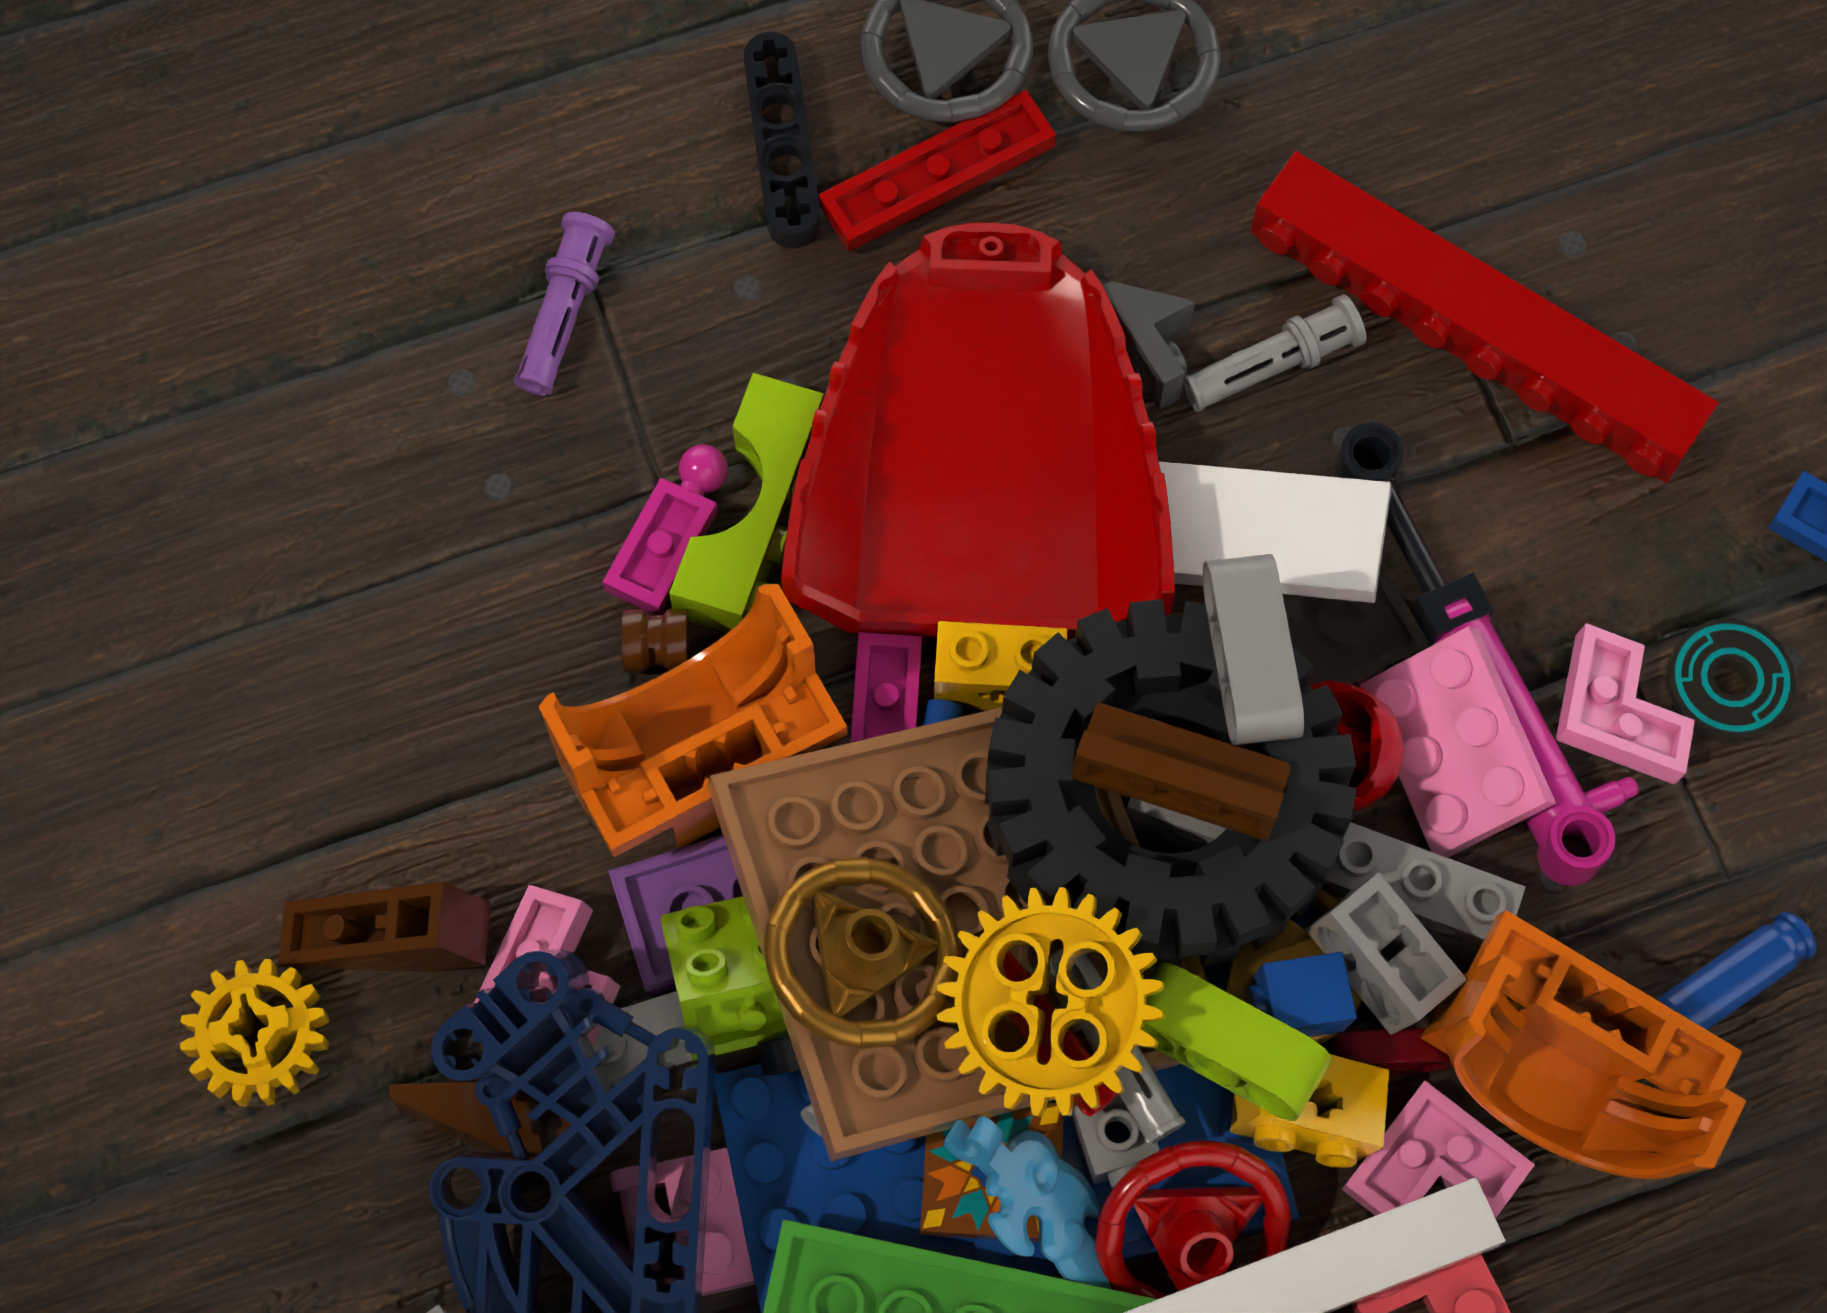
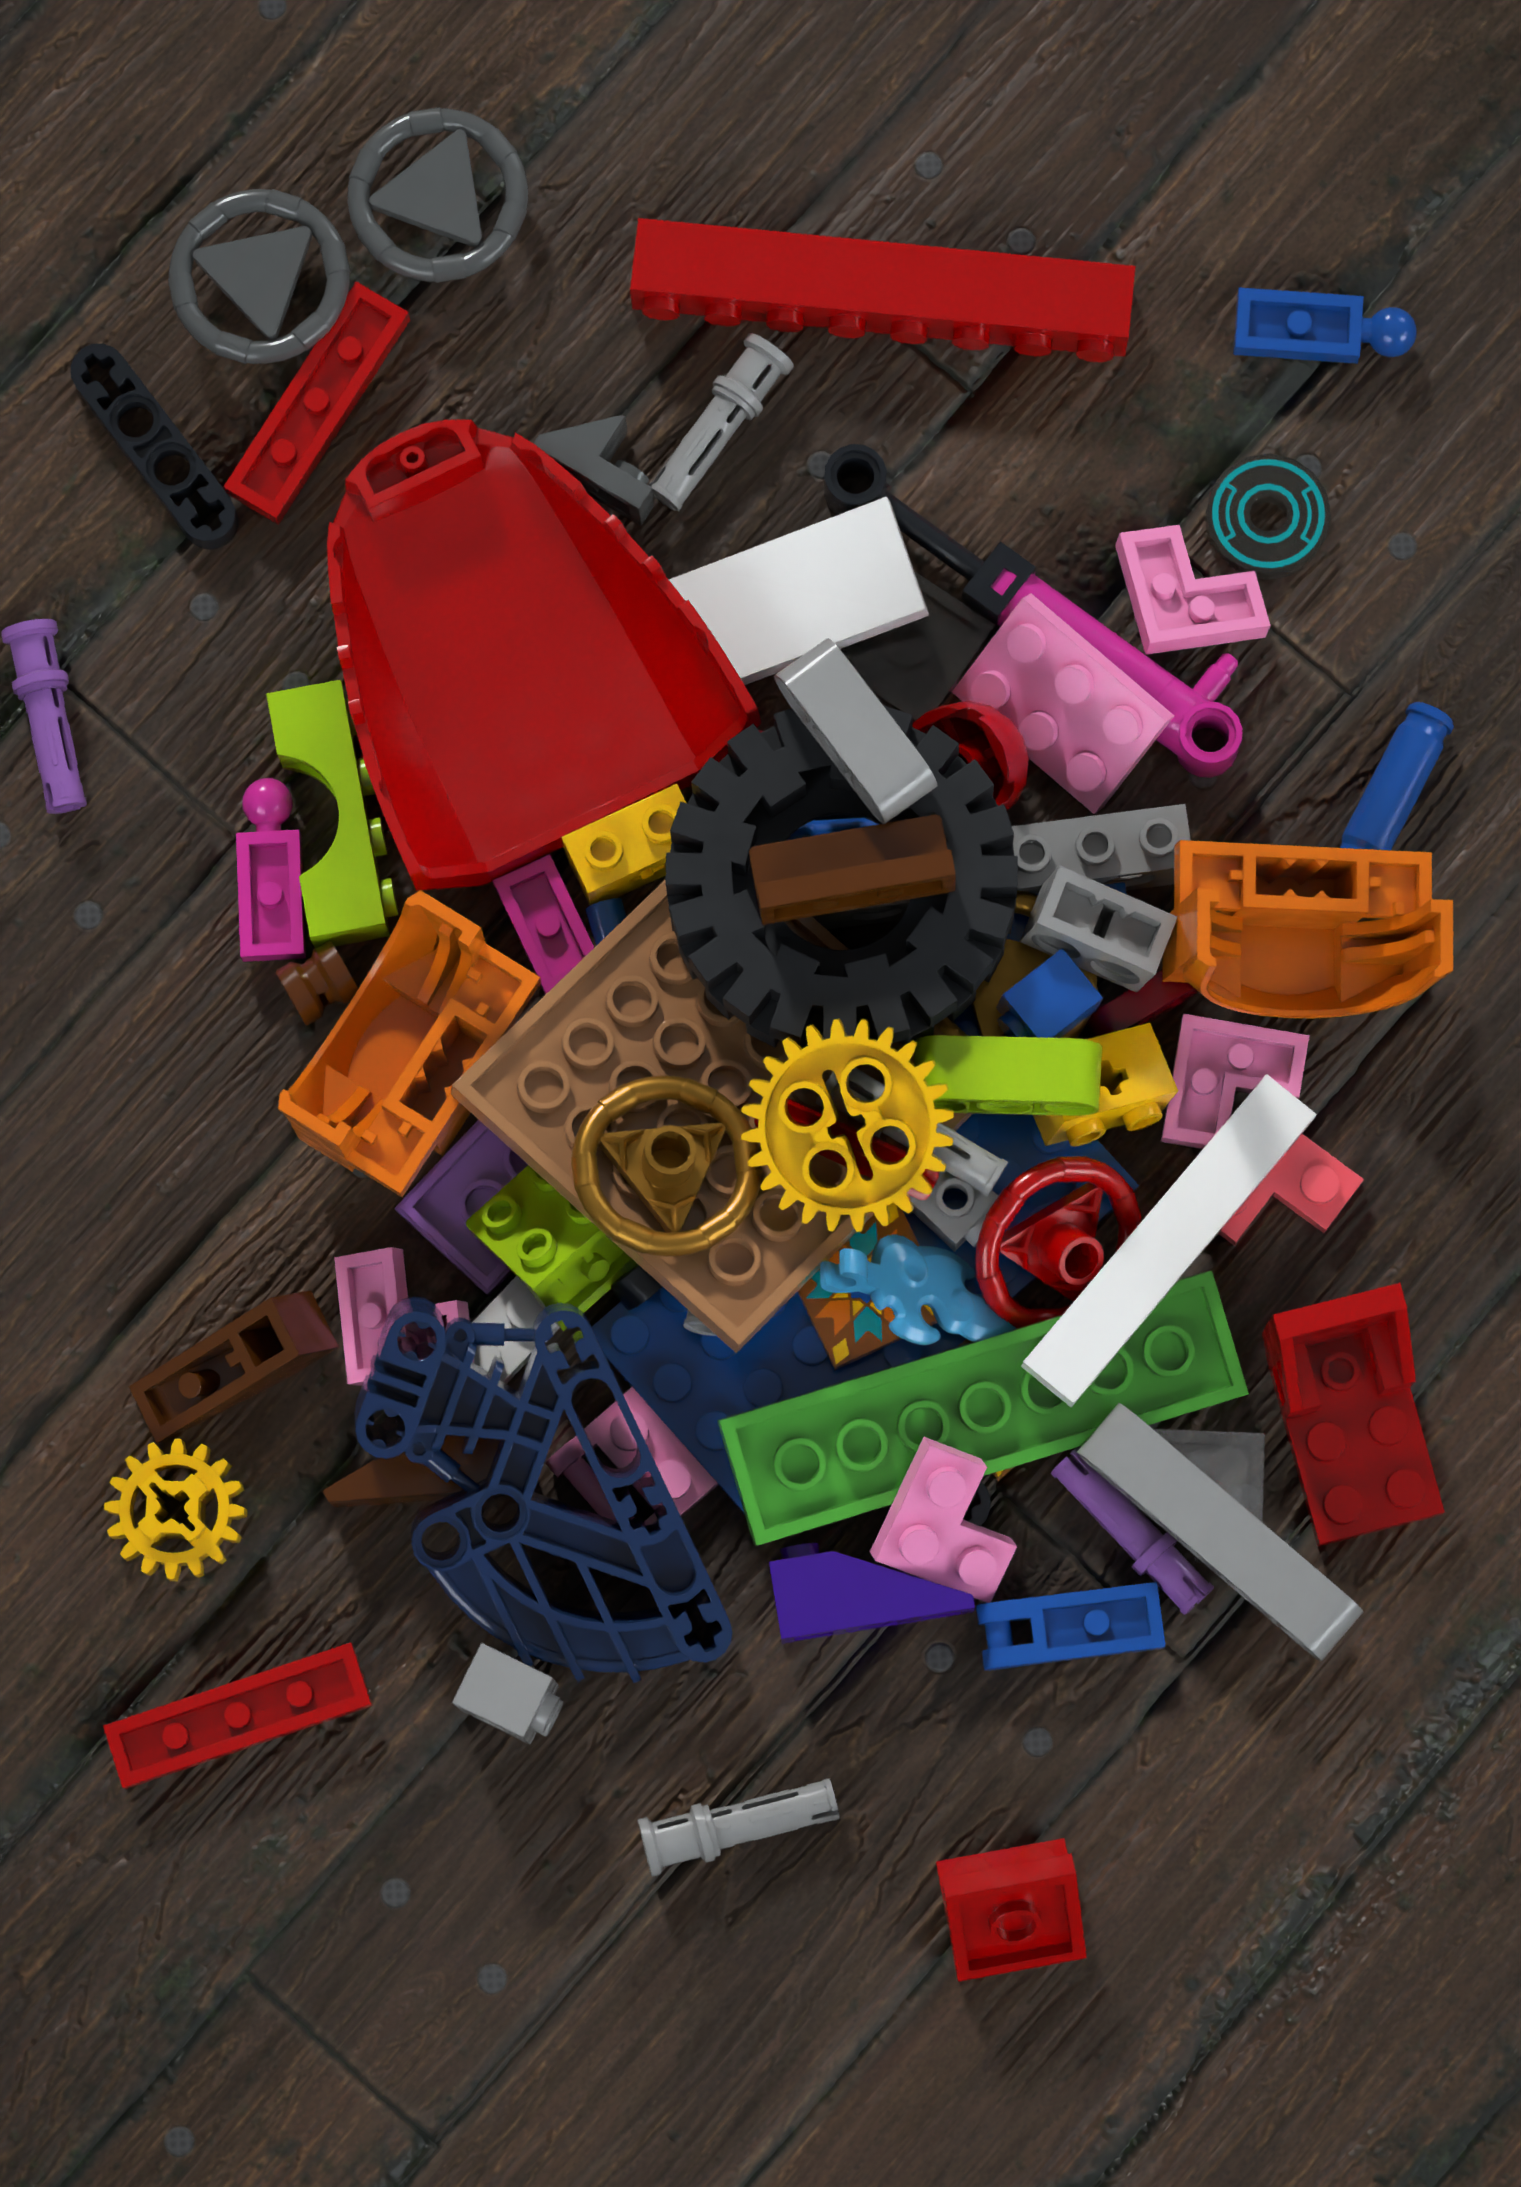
camera: 25 degrees left, 10 degrees up
(196, 1252) = (237, 1715): none -> red plate

